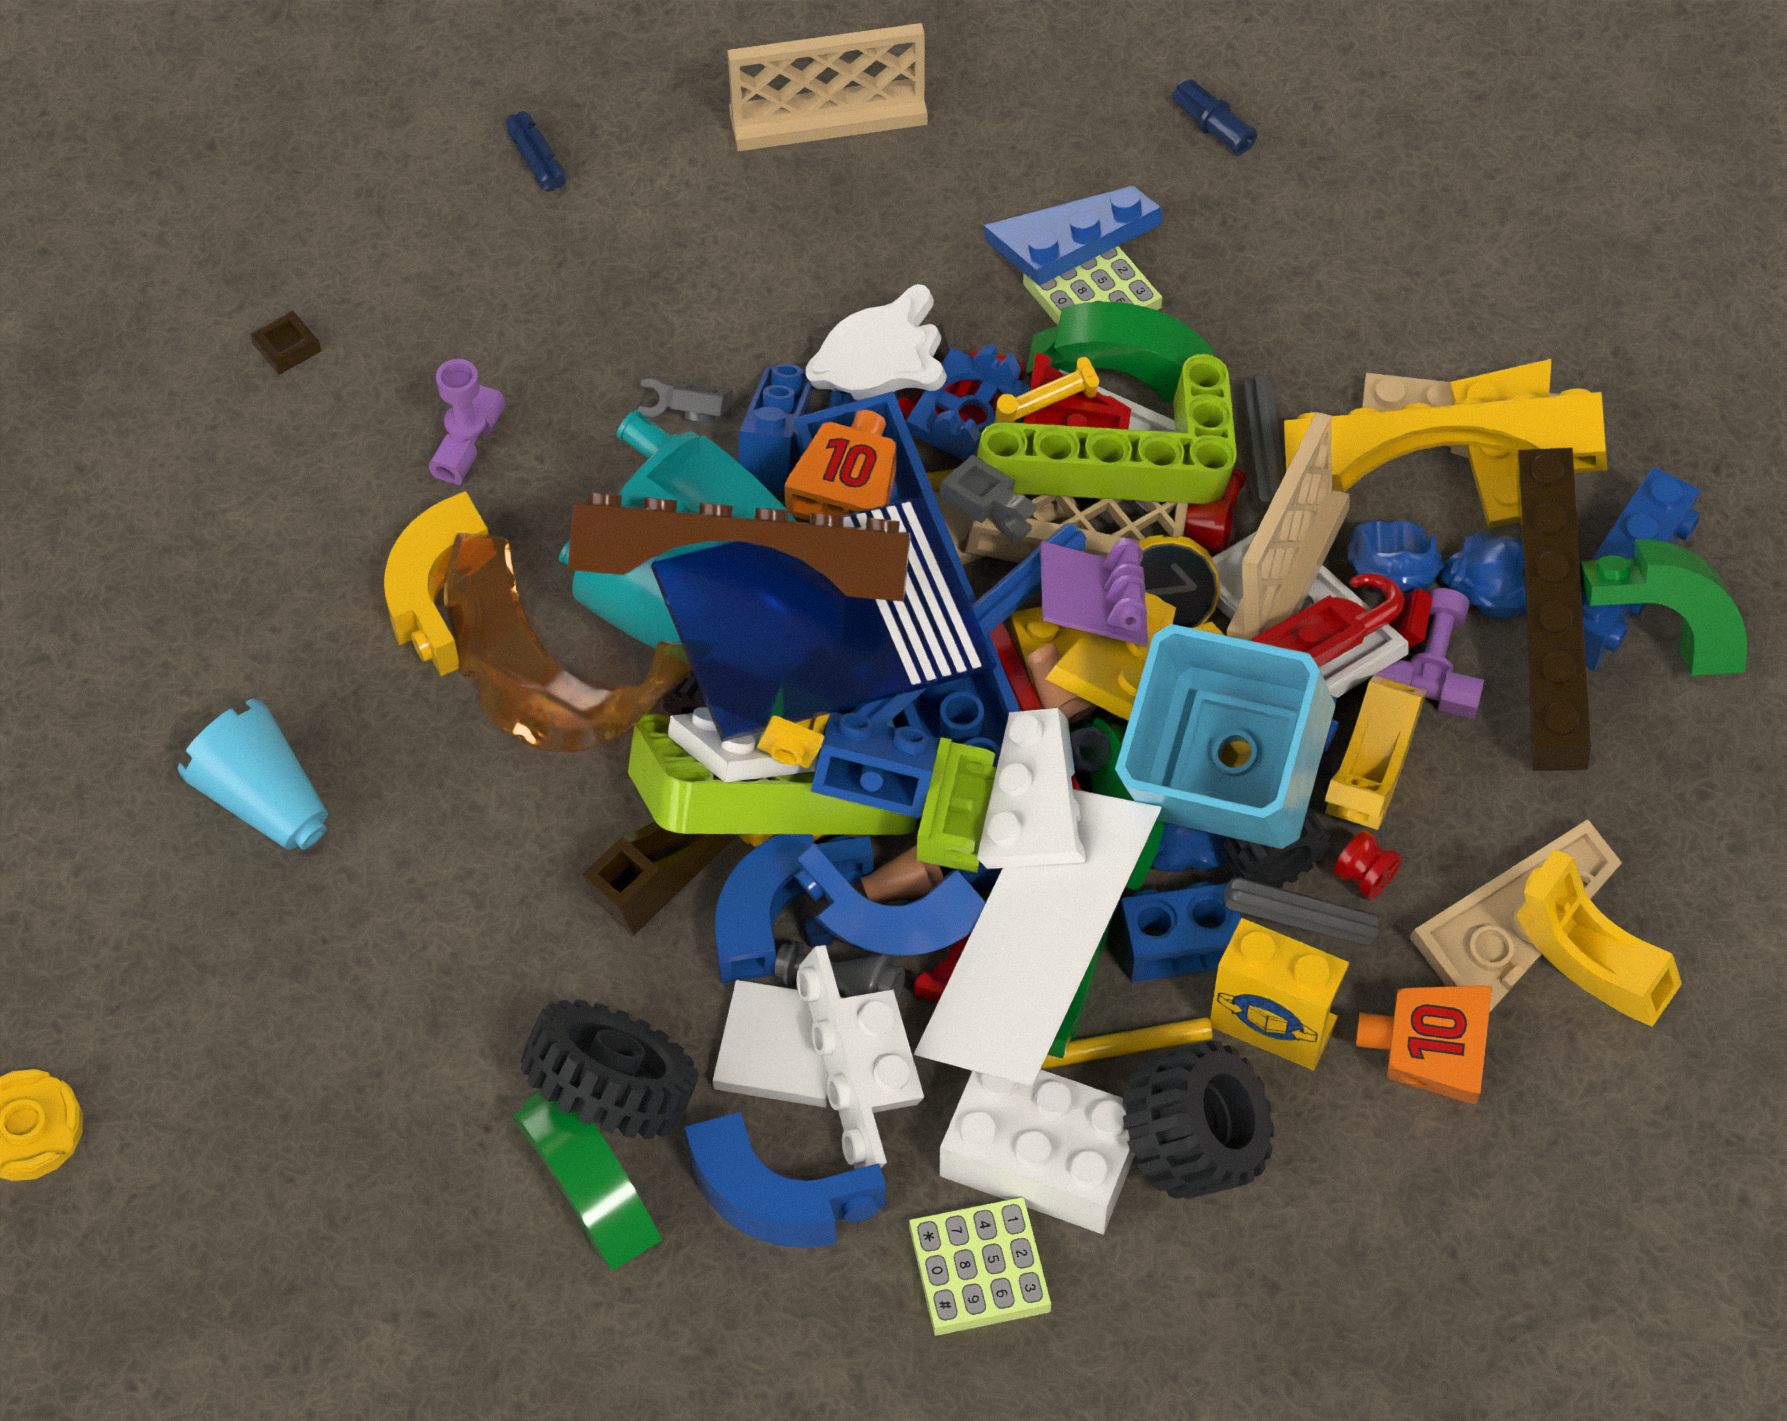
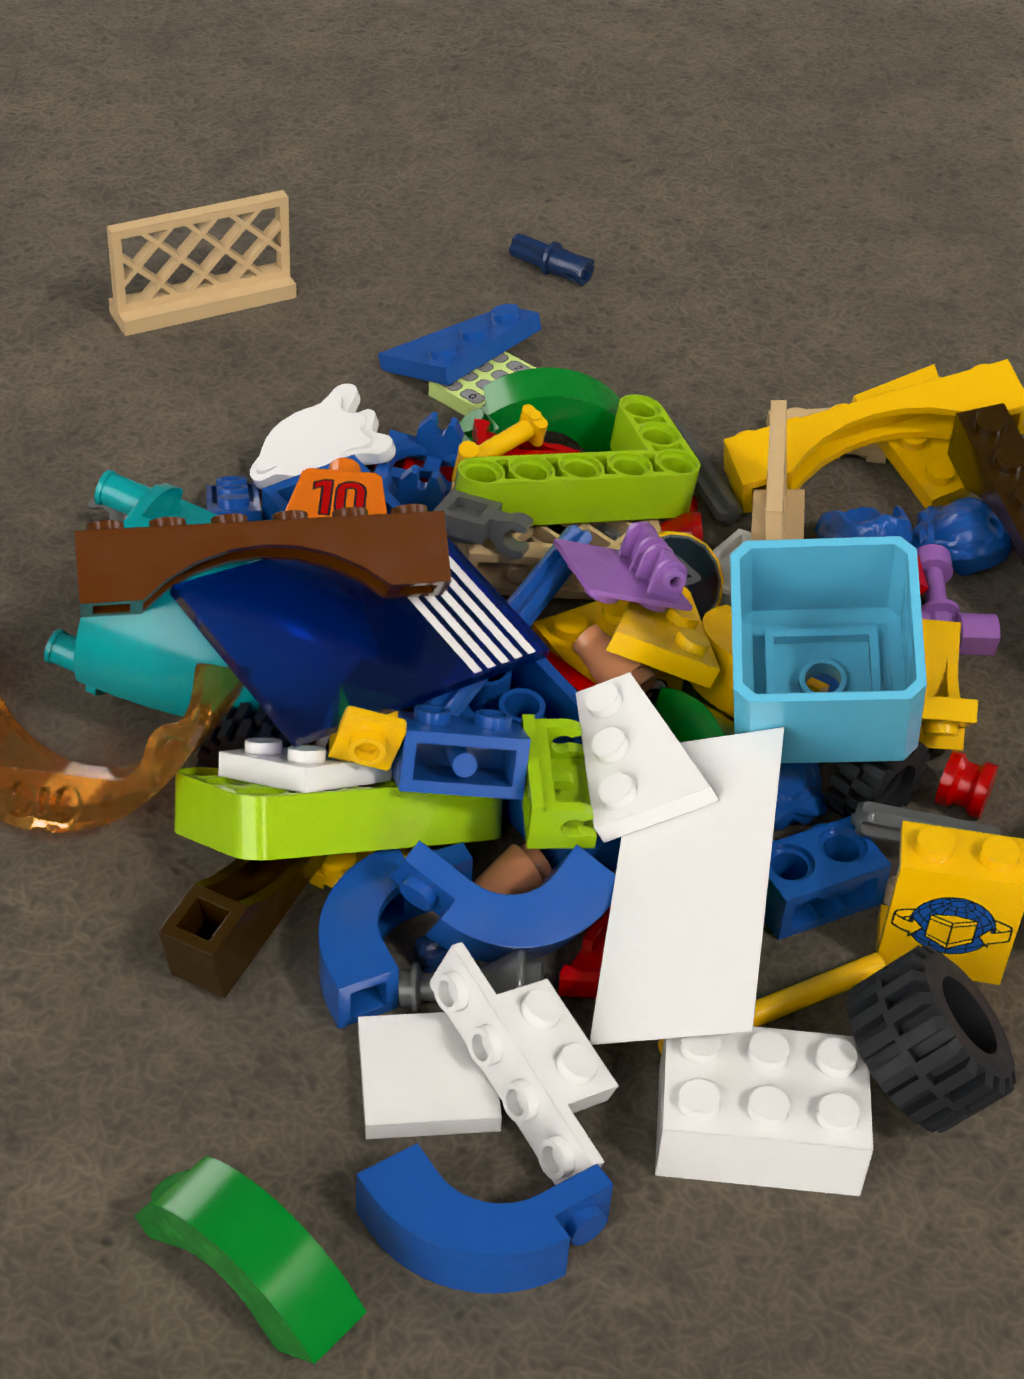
camera: 20 degrees left, 15 degrees down
(609, 1069) = (249, 1126): black wheel -> none
(979, 1266) = (741, 1261): tile -> none
(1090, 740) = (672, 709): hinge -> none

